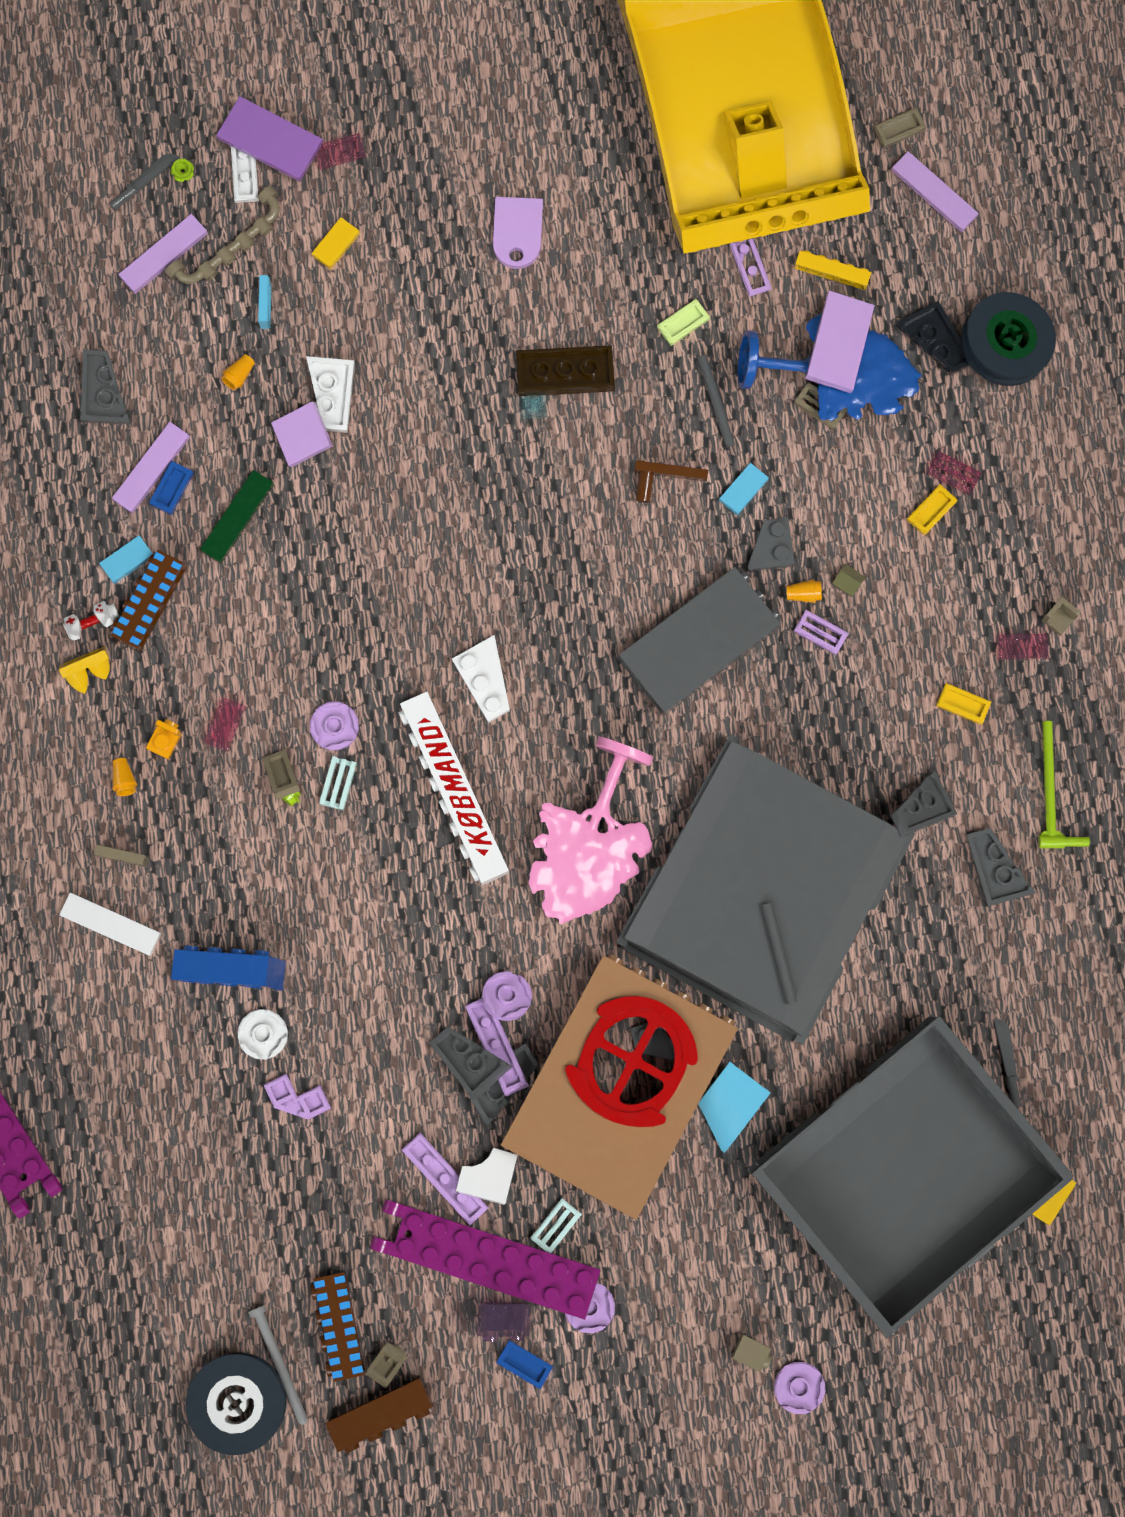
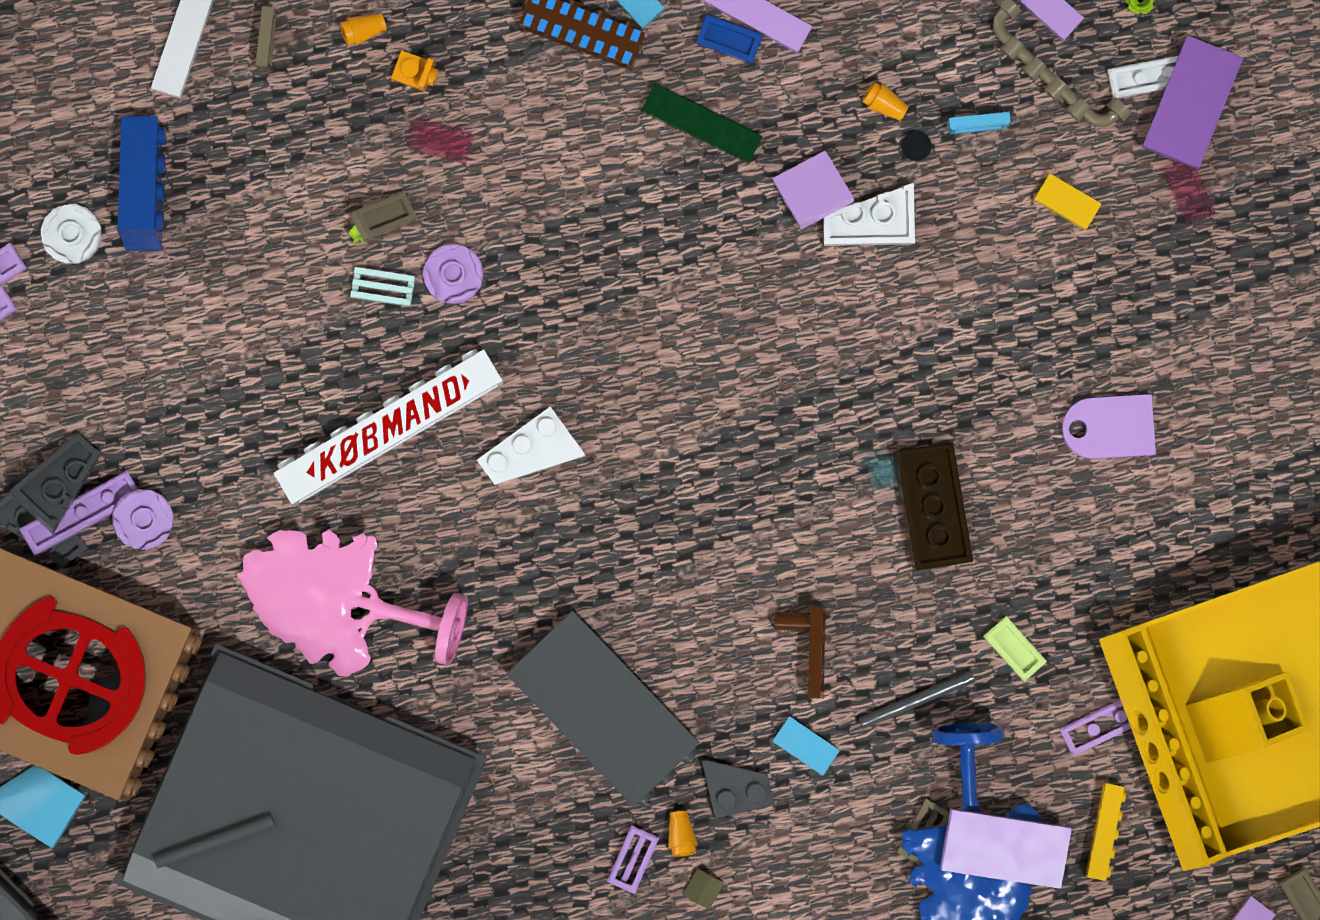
camera: 85 degrees right, 5 degrees up
(276, 353) = (916, 146): none -> black piece

